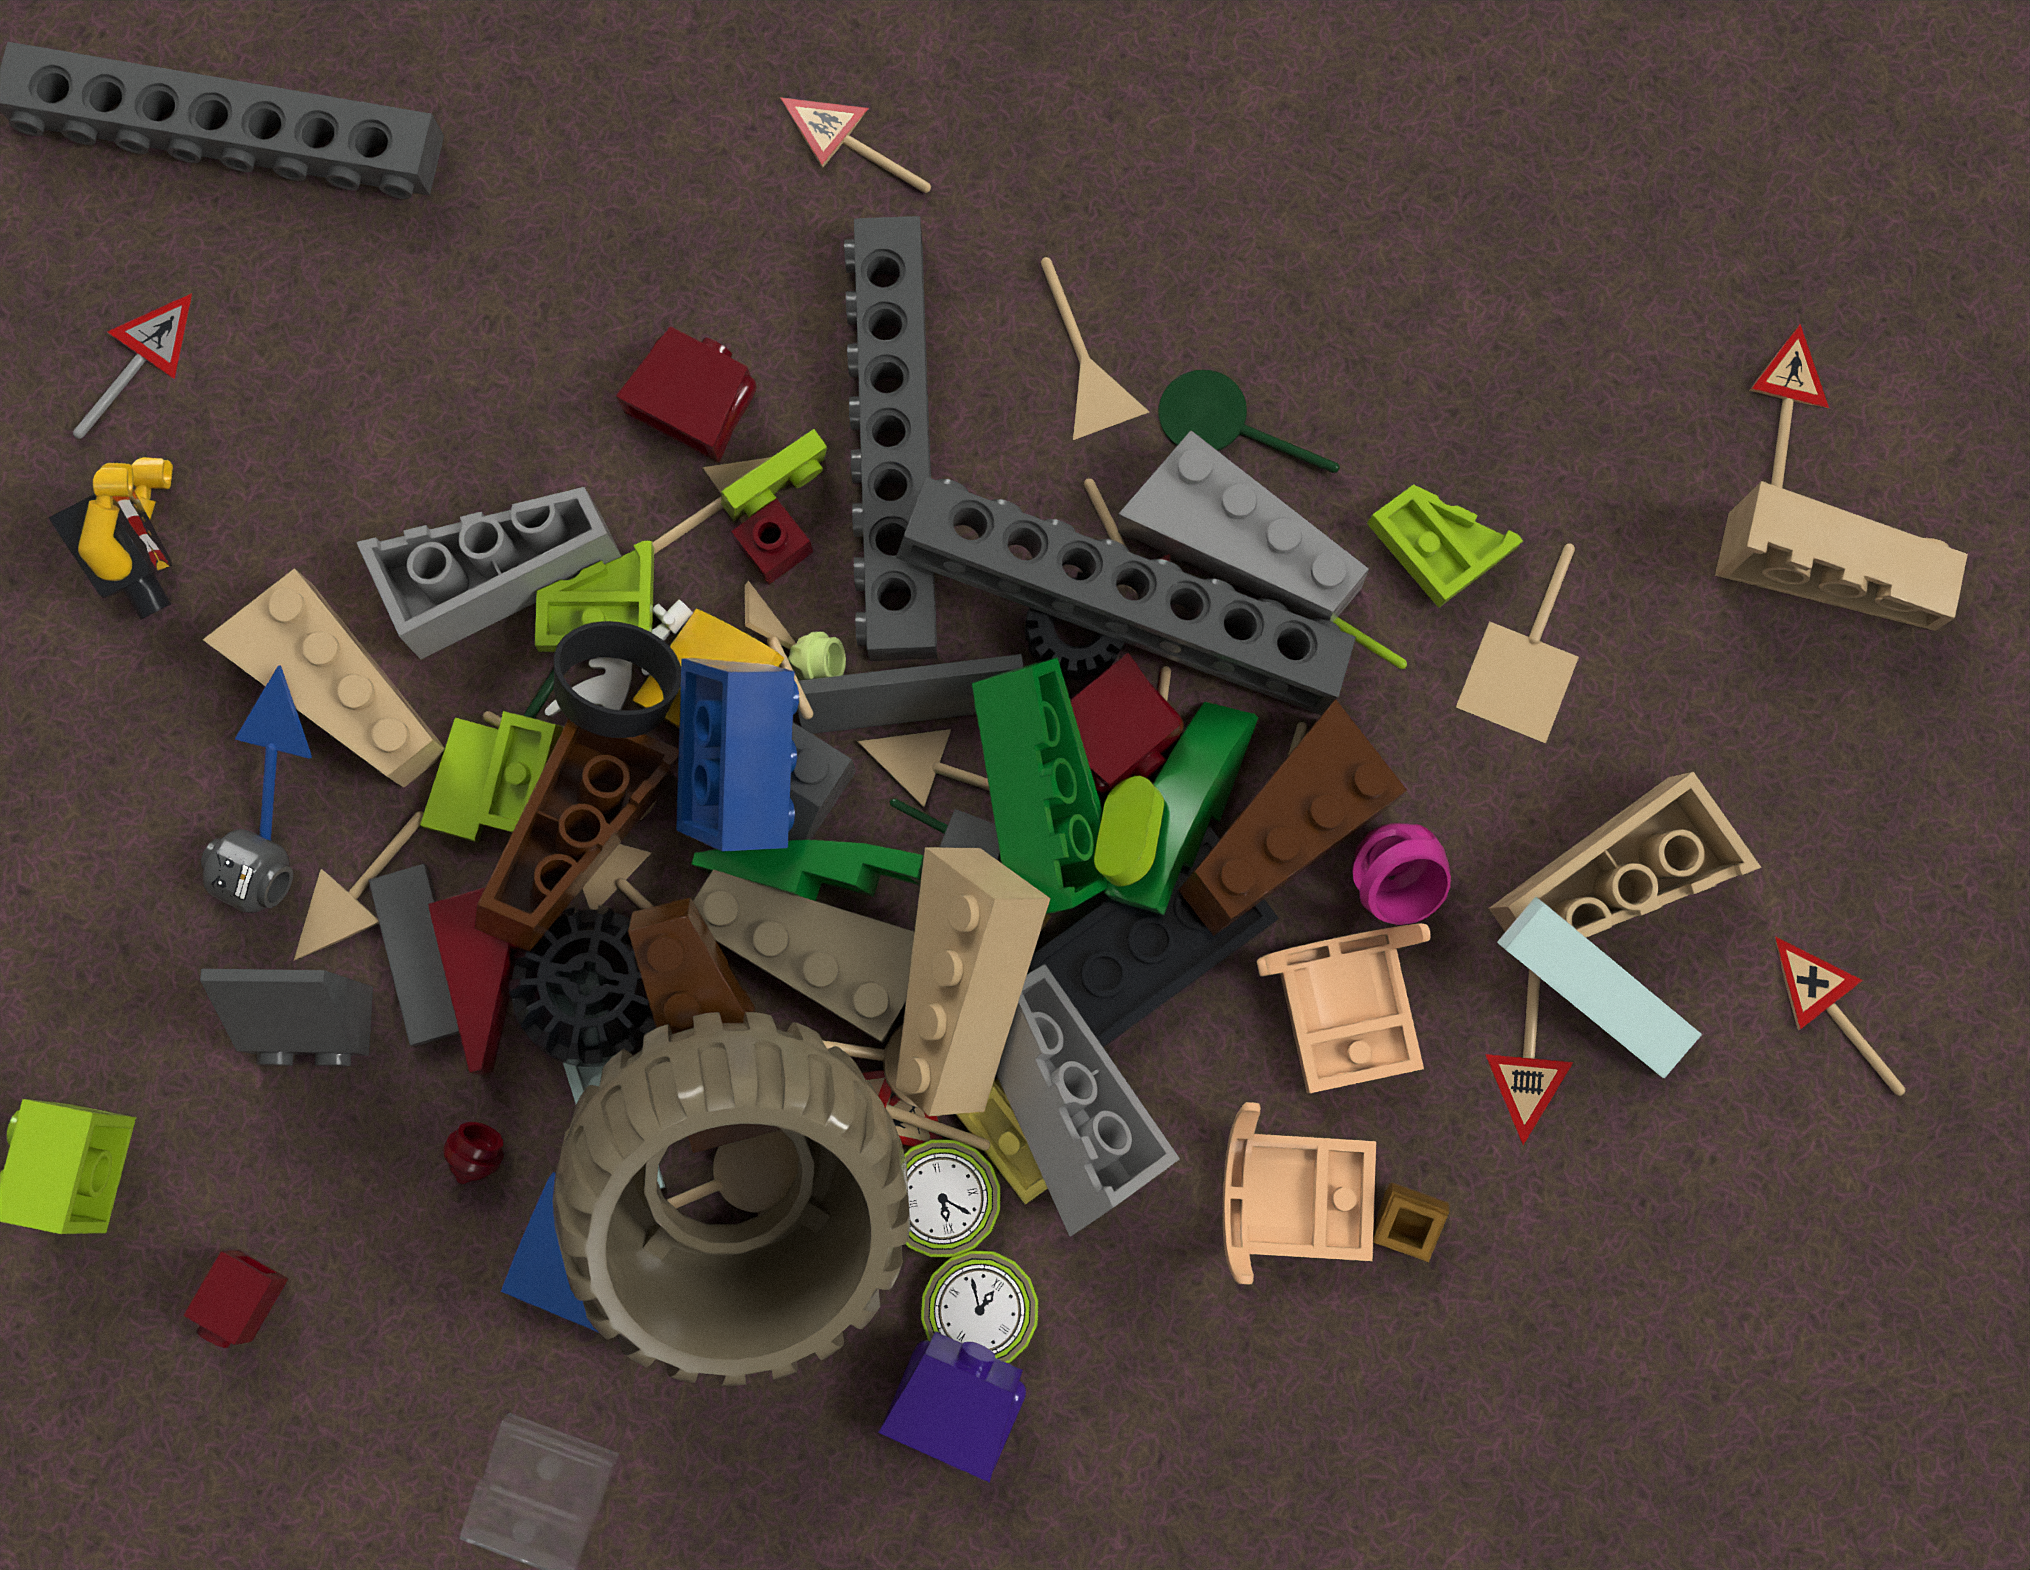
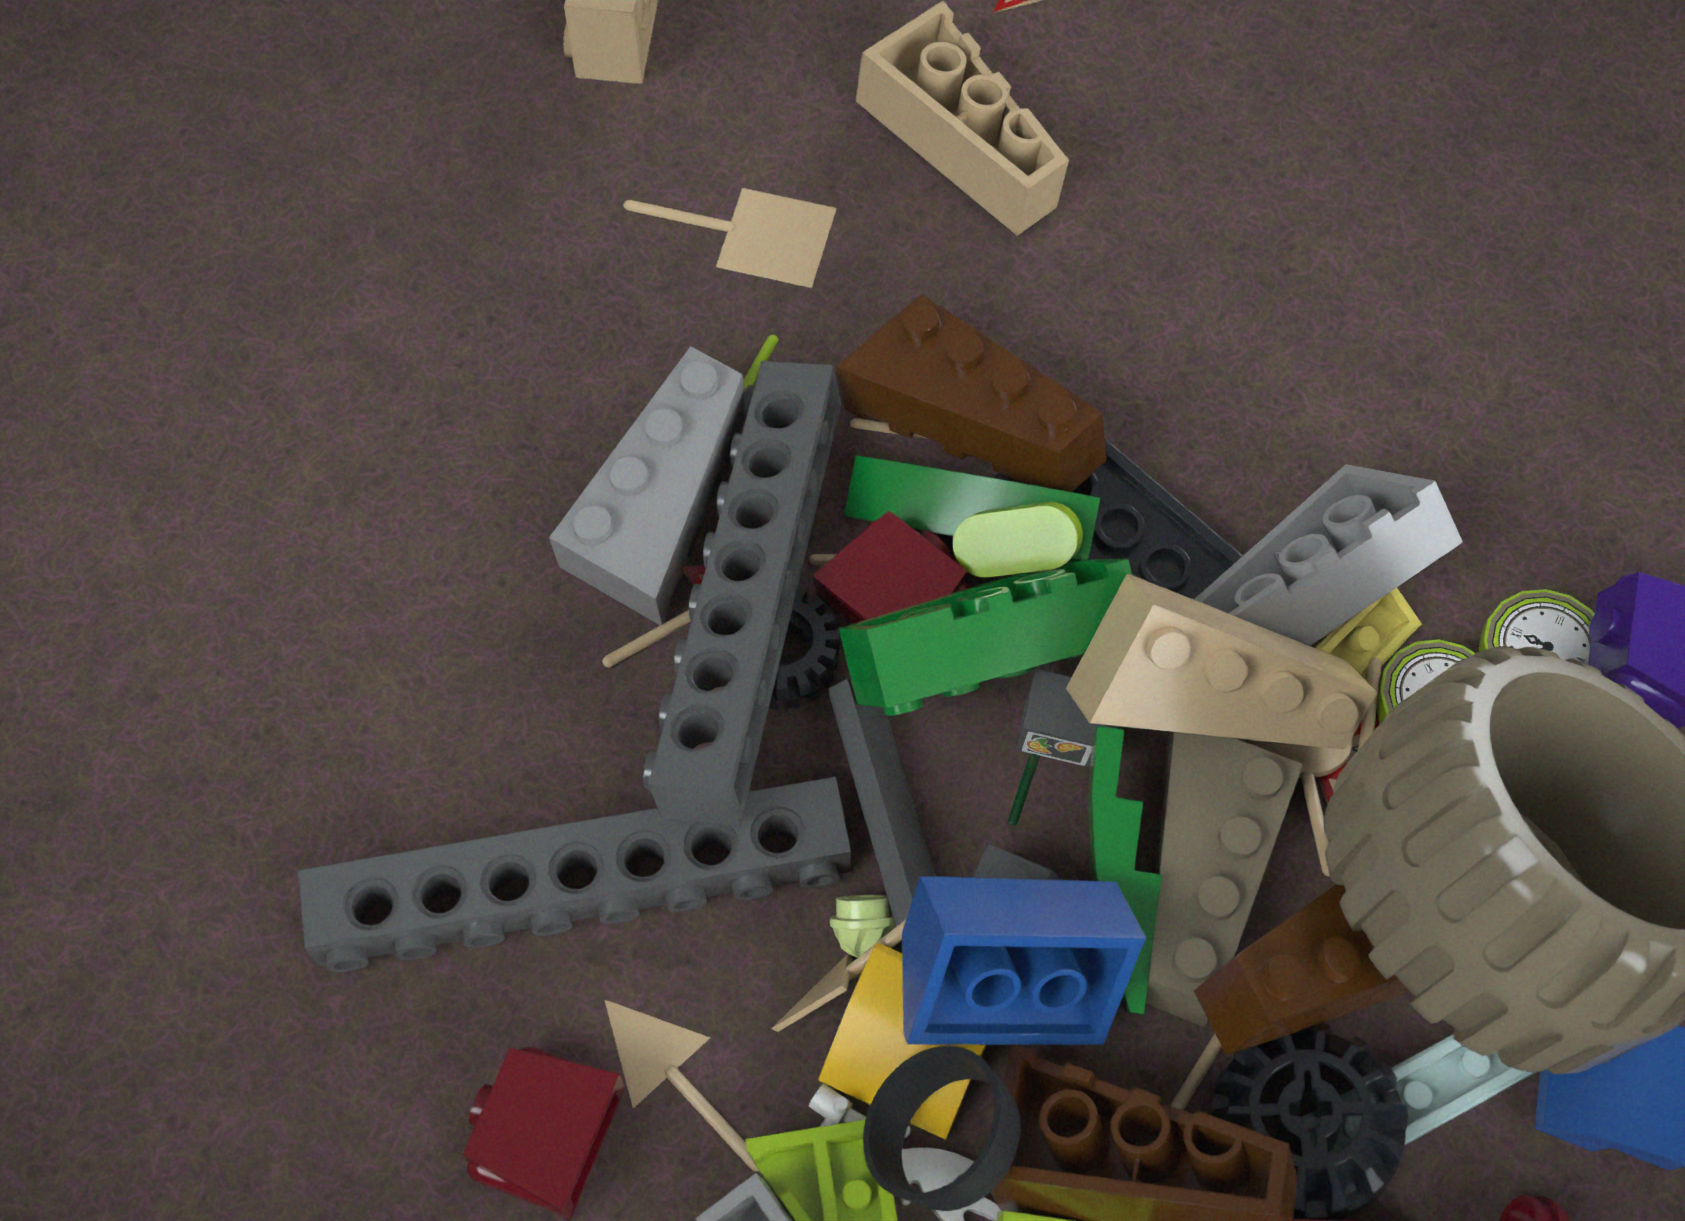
camera: 100 degrees left, 15 degrees down
(757, 488) = (626, 985): lime plate -> none
(774, 558) = (727, 1018): dark red plate -> none
(829, 126) = (171, 1023): piece -> none
(916, 760) = (960, 803): tan piece -> none
(1099, 397) = (503, 664): tan piece -> none
(1217, 413) = (511, 551): dark green piece -> none
(1295, 1196) = (1352, 370): light nougat piece -> none
(1349, 1006) = (1143, 338): light nougat piece -> none
(1410, 1221) = (1345, 268): pearl gold brick -> none
(1419, 868) = (1005, 291): dark pink helmet -> none
(1439, 542) = (641, 311): lime wing -> none
(1526, 1081) = (1177, 191): piece -> none
(1599, 987) = (1085, 120): light aqua tile -> none
(1792, 379) = (434, 34): piece -> none

